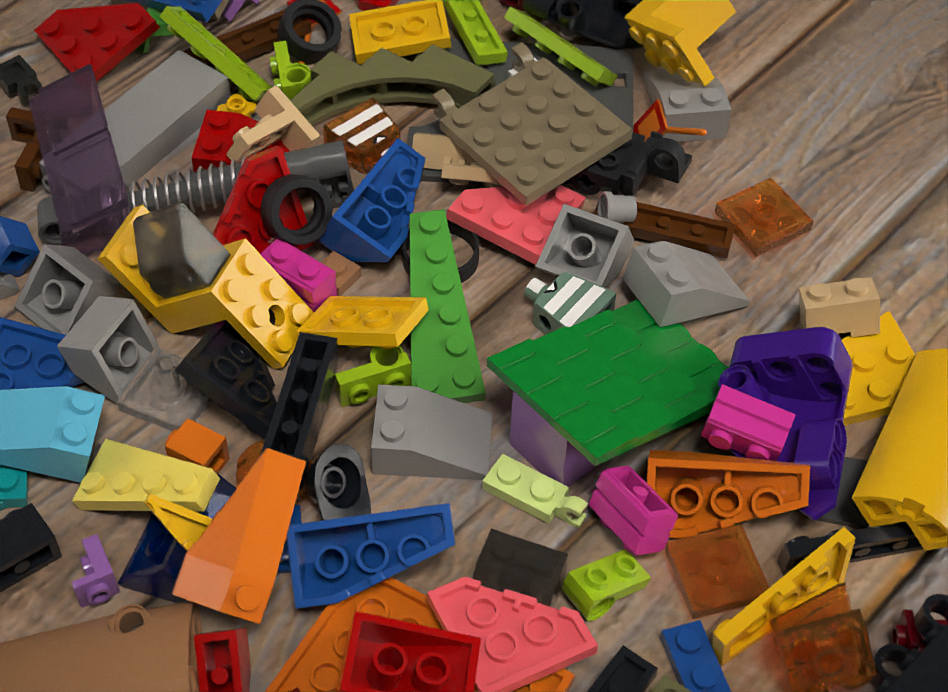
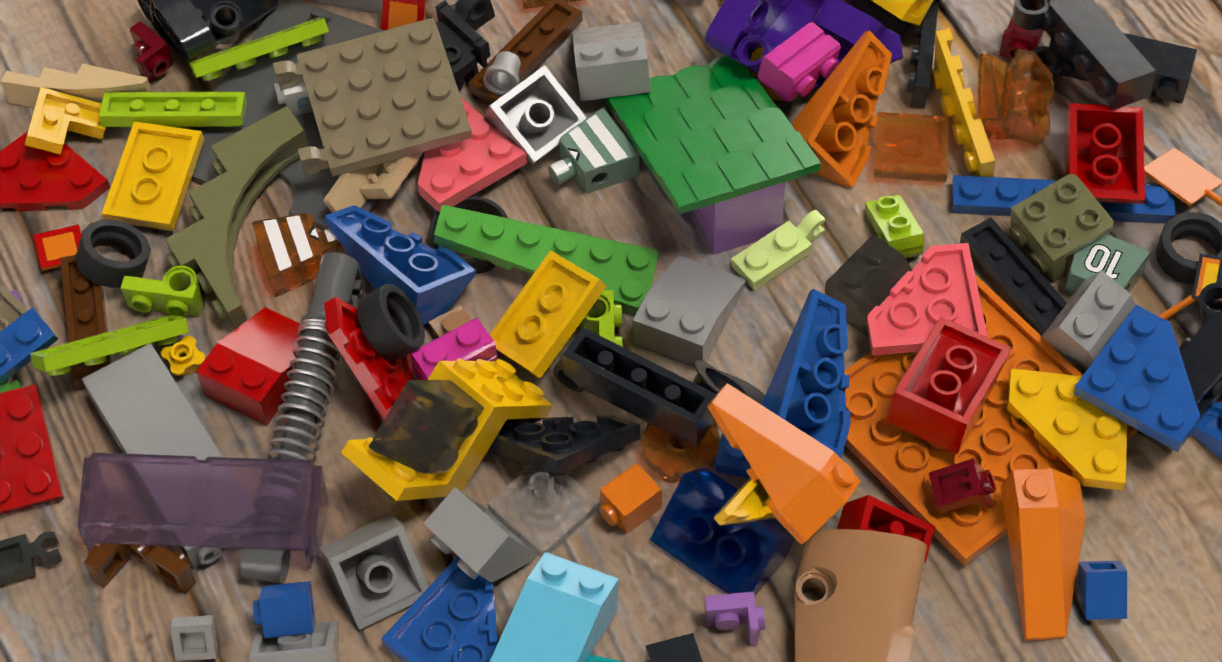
camera: 65 degrees left, 5 degrees up
(126, 474) = (662, 541): light yellow wing -> none
(278, 122) = (262, 313): tan bracket -> none
(632, 510) = (842, 179): dark pink brick -> none

